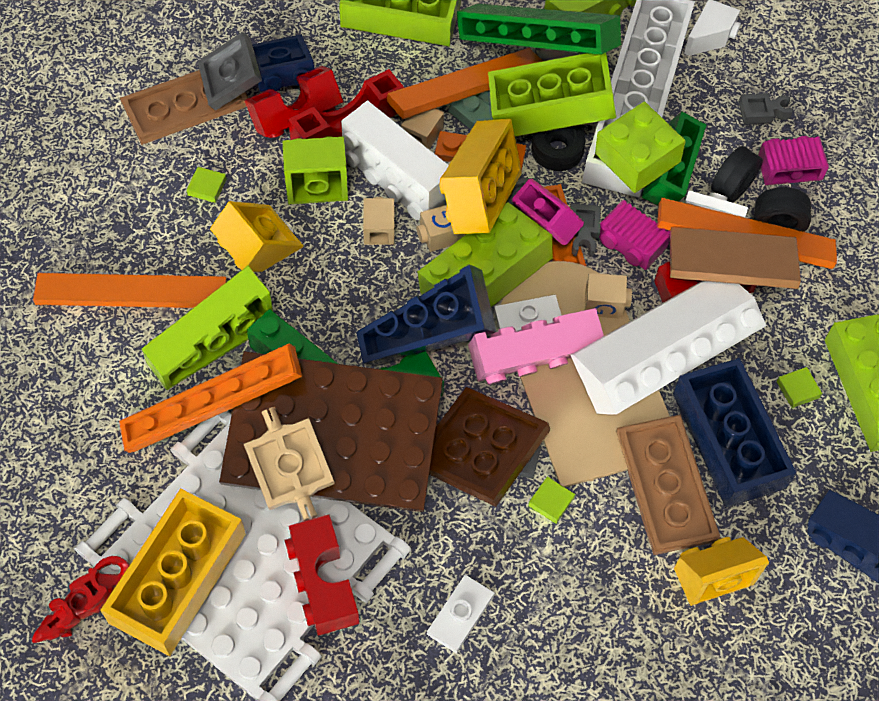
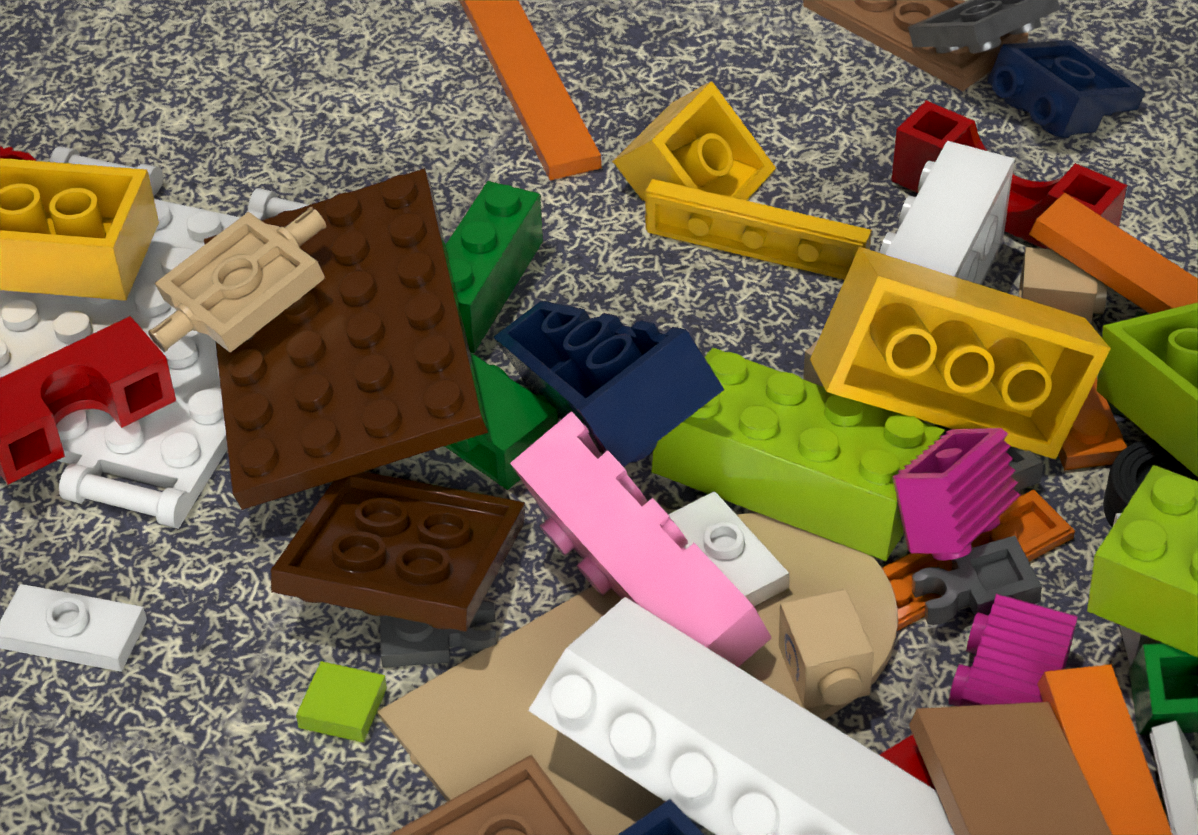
camera: 75 degrees right, 15 degrees down
(206, 184) = (768, 88): lime tile -> none
(208, 329) = (479, 143): lime wedge -> none
(210, 398) = (337, 171): orange tile -> none
(270, 113) = (1028, 130): red arch -> none
(315, 170) = (852, 163): lime brick -> none
(322, 229) = (753, 229): none -> yellow tile
(378, 221) = (805, 289): tan brick -> none

